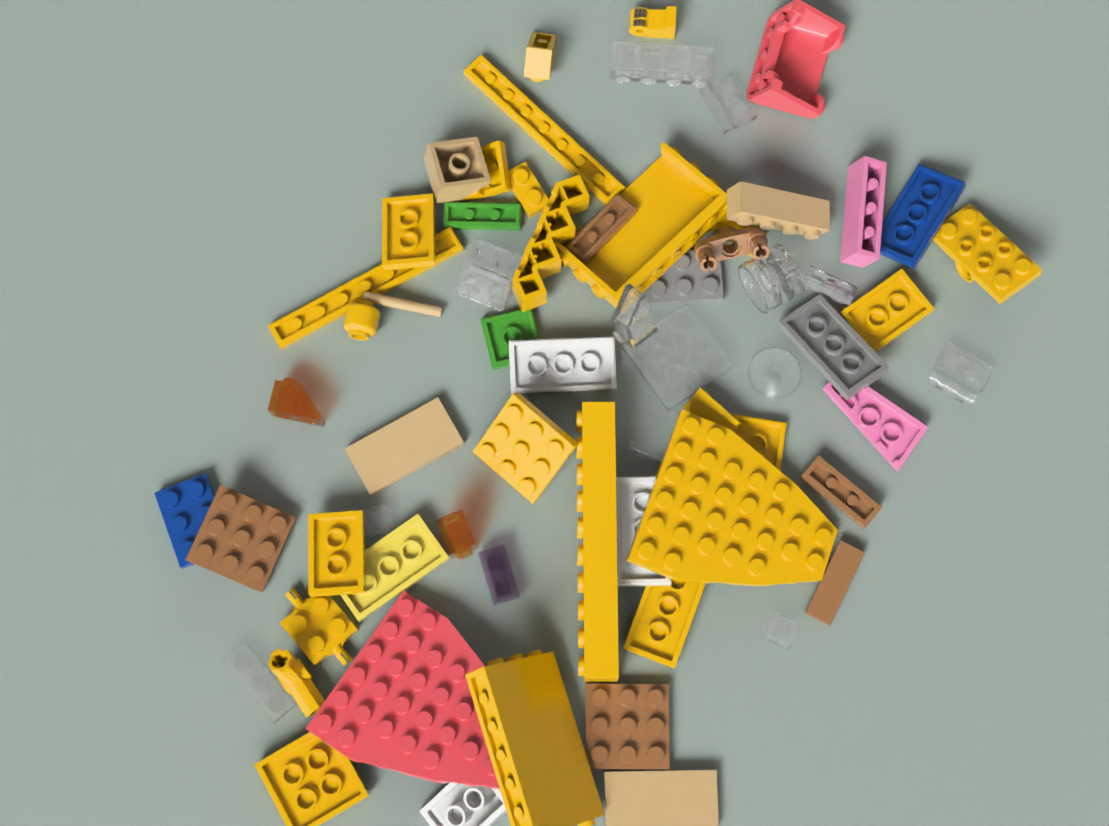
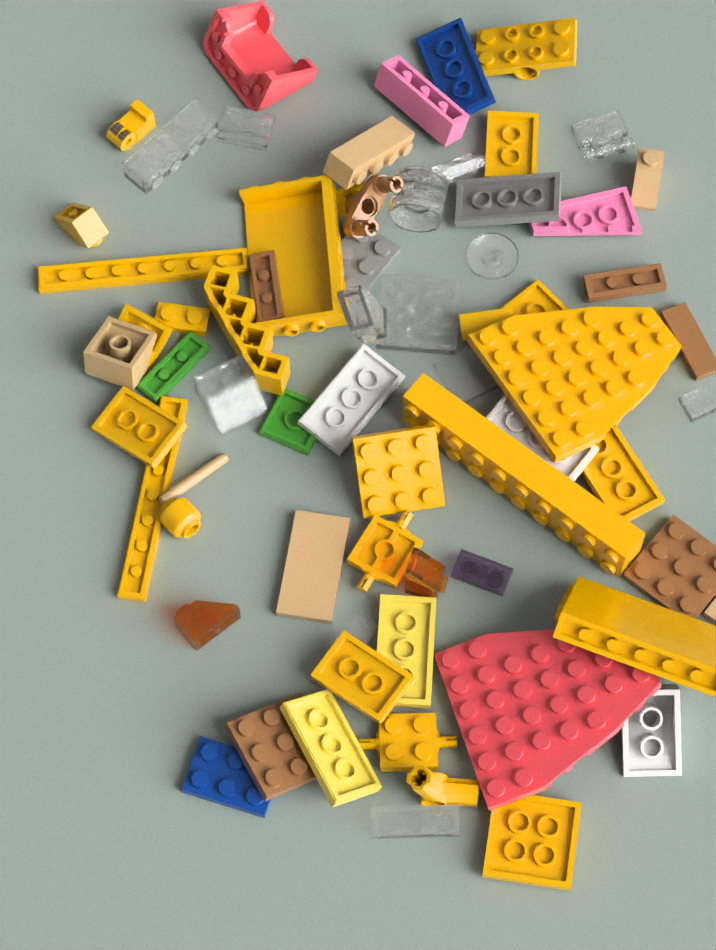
camera: 50 degrees left, 10 degrees down
(264, 574) = (330, 747): none -> light yellow tile
(457, 487) = (384, 551): none -> yellow plate
(949, 438) = (647, 178): none -> tan slope

